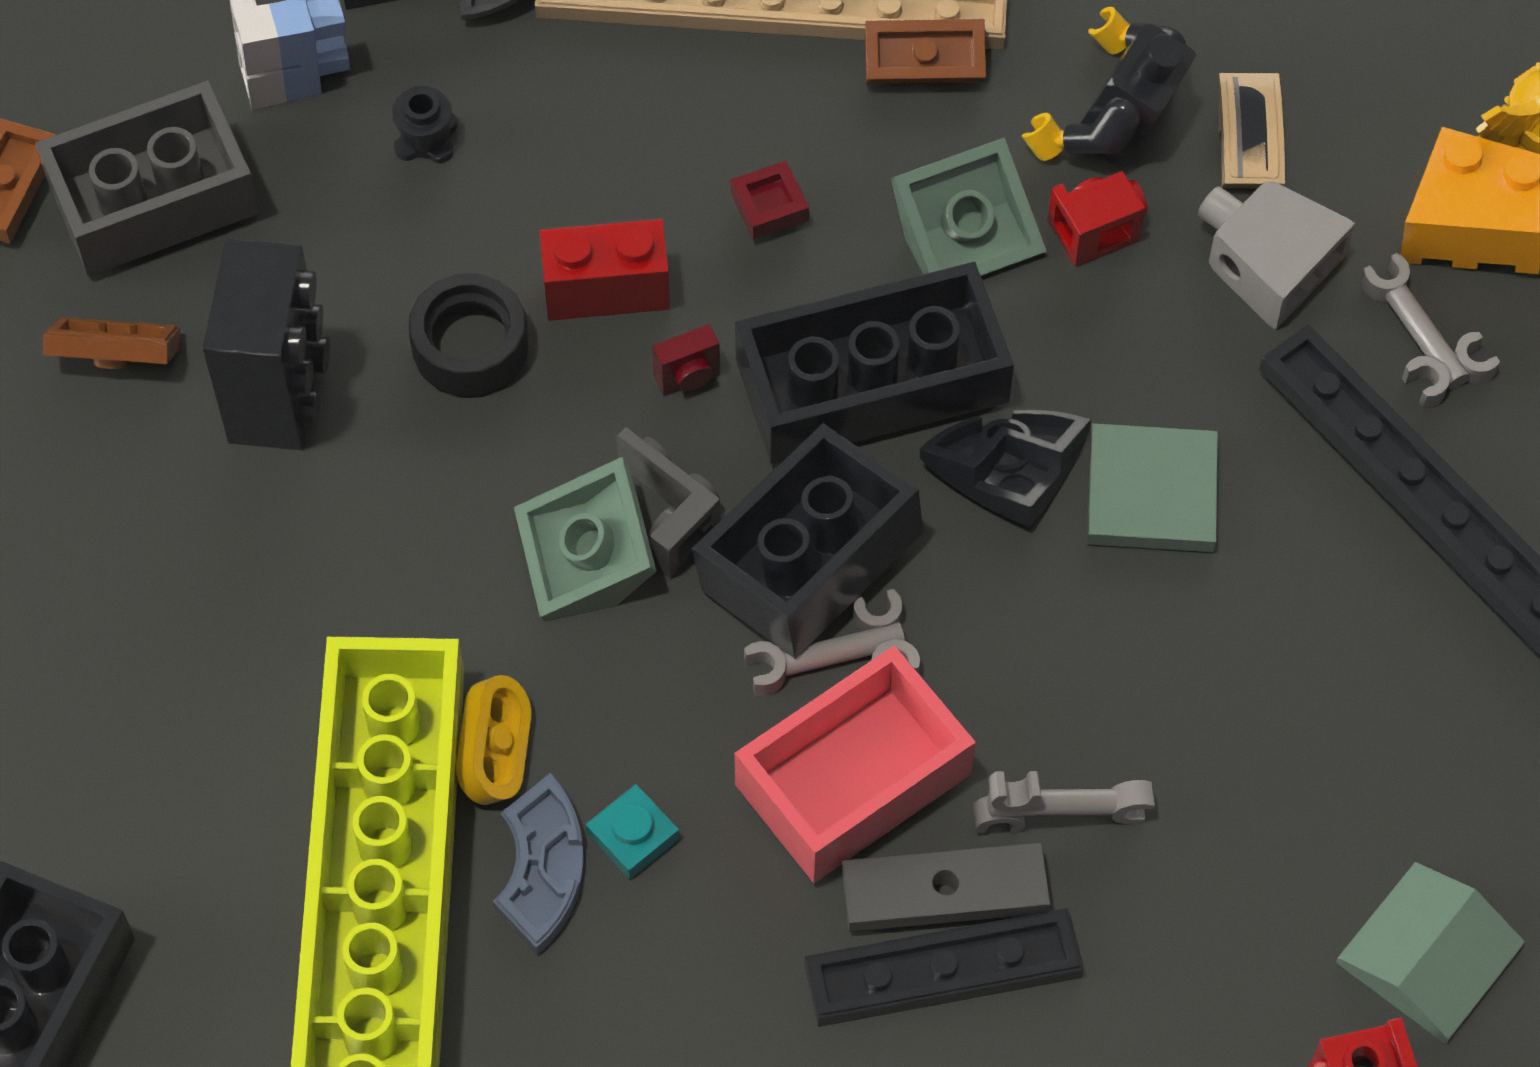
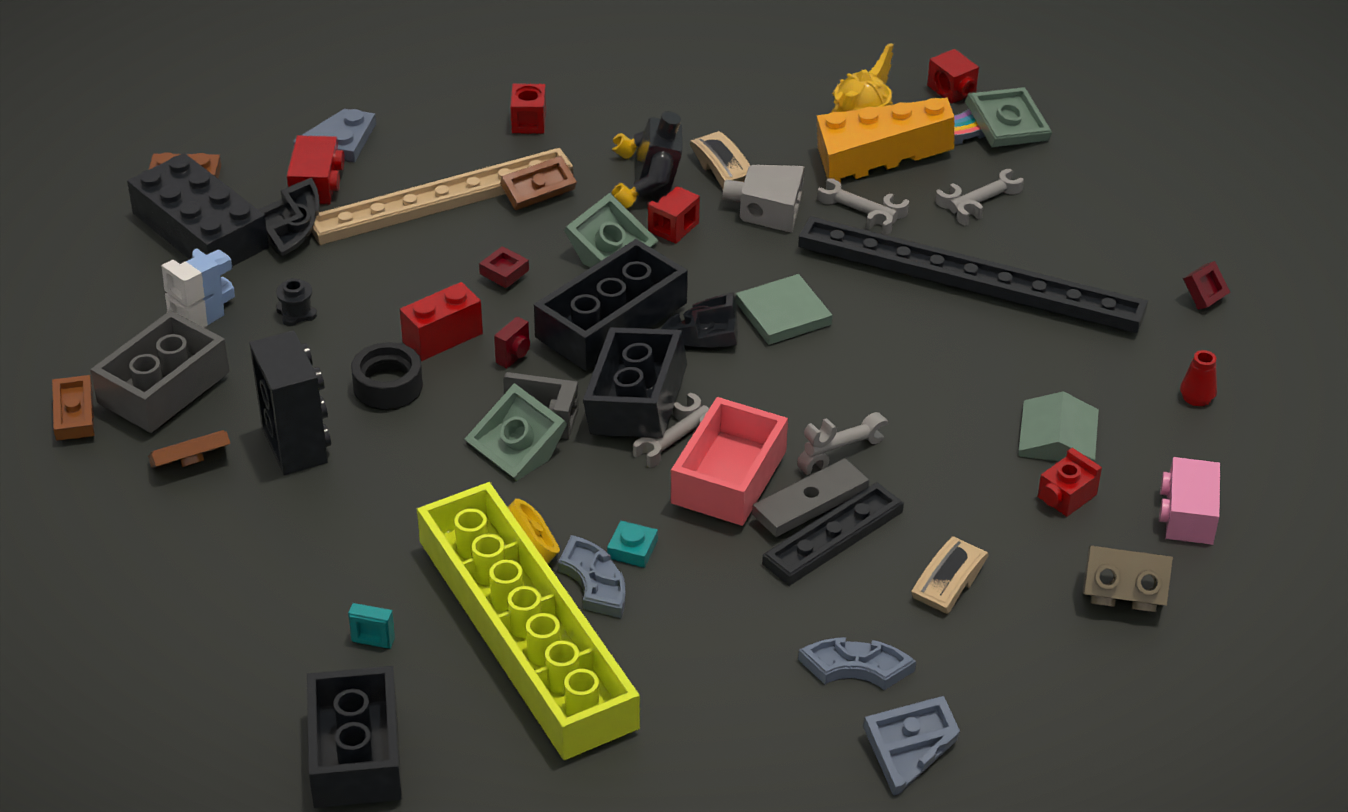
camera: 30 degrees left, 20 degrees down
(168, 797) = (371, 625): none -> teal tile

